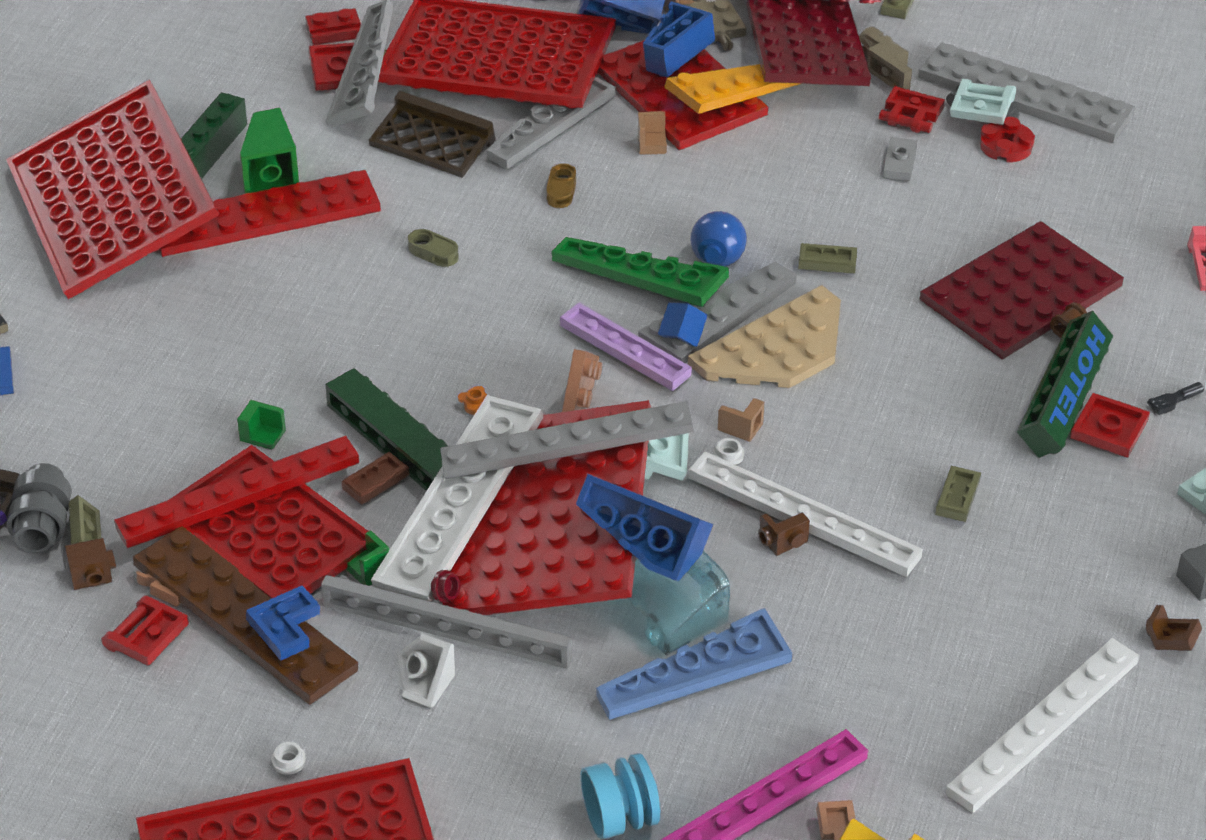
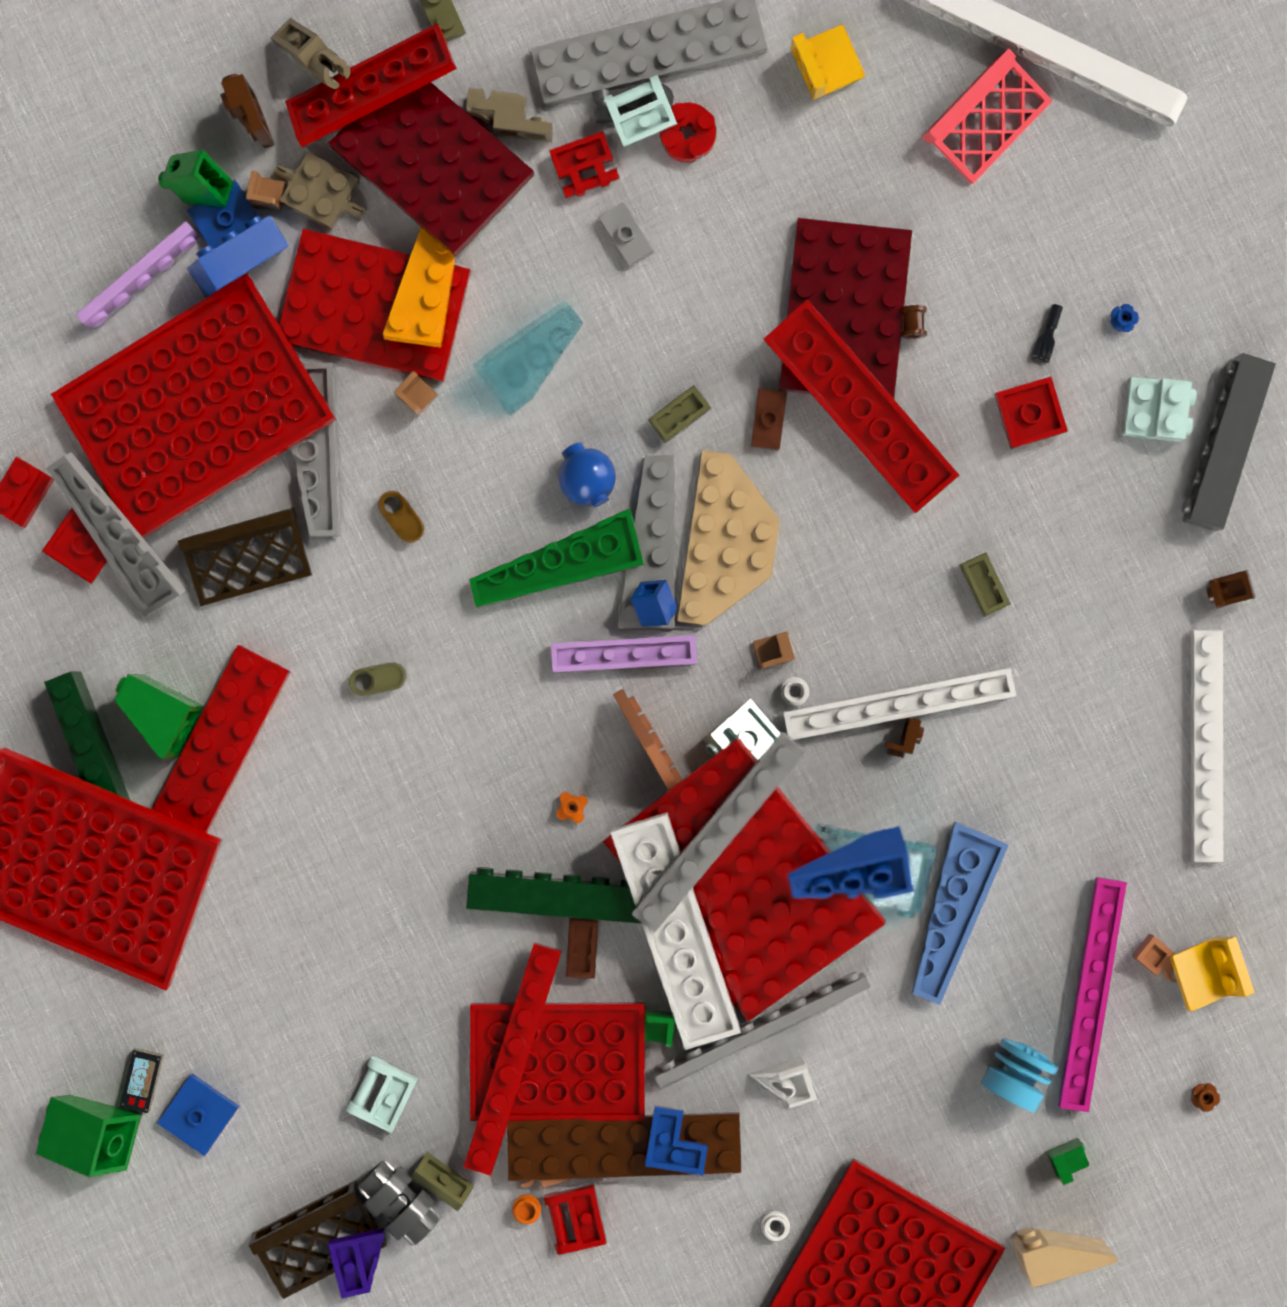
camera: 40 degrees left, 45 degrees up
(90, 563) = (481, 1207): reddish brown brick -> none
(118, 454) = (390, 1099): none -> light aqua plate
(118, 596) = (526, 1209): none -> orange plate
(261, 424) = (453, 977): green panel -> none
(445, 586) = (745, 1015): dark red plate -> none
(677, 39) = (337, 268): blue wedge -> none
(745, 163) = (525, 359): none -> clear light blue wedge
(892, 304) = (769, 419): none -> copper plate
(972, 330) = (861, 406): none -> red plate
(1065, 385) = (973, 403): dark green brick -> none
(1151, 165) = (826, 61): none -> yellow bracket

